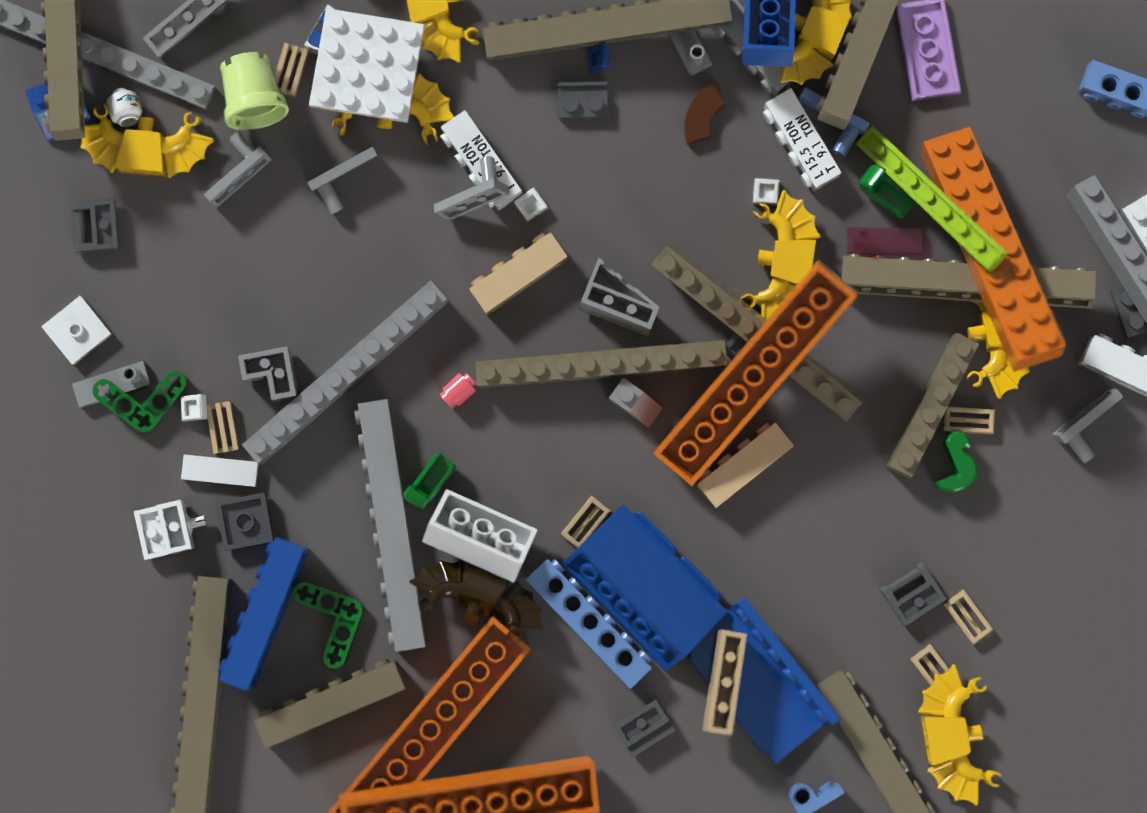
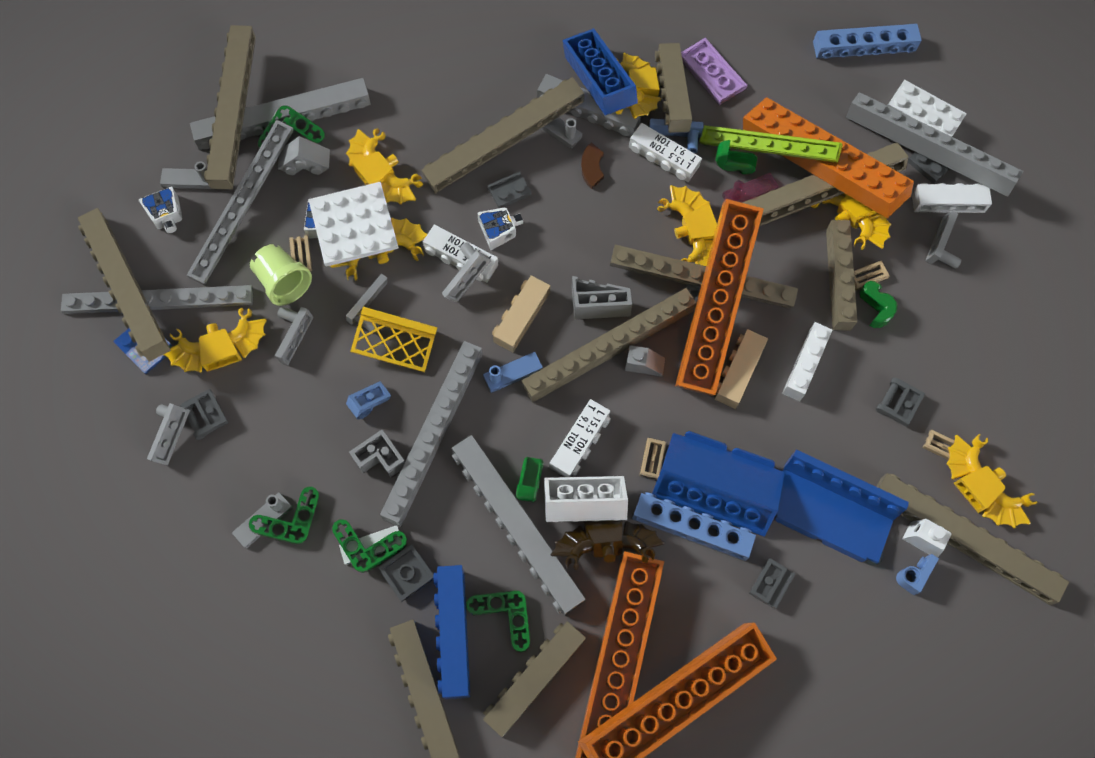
camera: 30 degrees left, 15 degrees down
(47, 232) = (168, 432): none -> light grey piece
(76, 330) = (219, 493): white plate -> none
(124, 107) = (192, 324): white head -> none
(166, 529) = (349, 606): white plate -> none
(194, 407) = (331, 508): white tile -> none
(212, 481) = (369, 553): none -> green beam
(218, 406) = (350, 500): tan tile -> none
(288, 297) = (363, 401): none -> medium blue plate
(363, 220) = (397, 323): none -> yellow fence
(458, 390) = (518, 408): coral brick -> none
(474, 340) = (512, 372): none -> medium blue piece
(510, 461) = (579, 439): none -> white brick
(530, 204) = (507, 268): white tile -> none
(545, 145) = (498, 226): none -> torso
(598, 58) = (506, 160): blue slope -> none
(724, 682) = (813, 519): tan brick -> none
(766, 191) = (658, 192): white tile -> none
(828, 494) = (807, 361): none -> white brick
(847, 762) = (928, 538): none -> white torso
(980, 634) = (942, 403): tan tile -> none

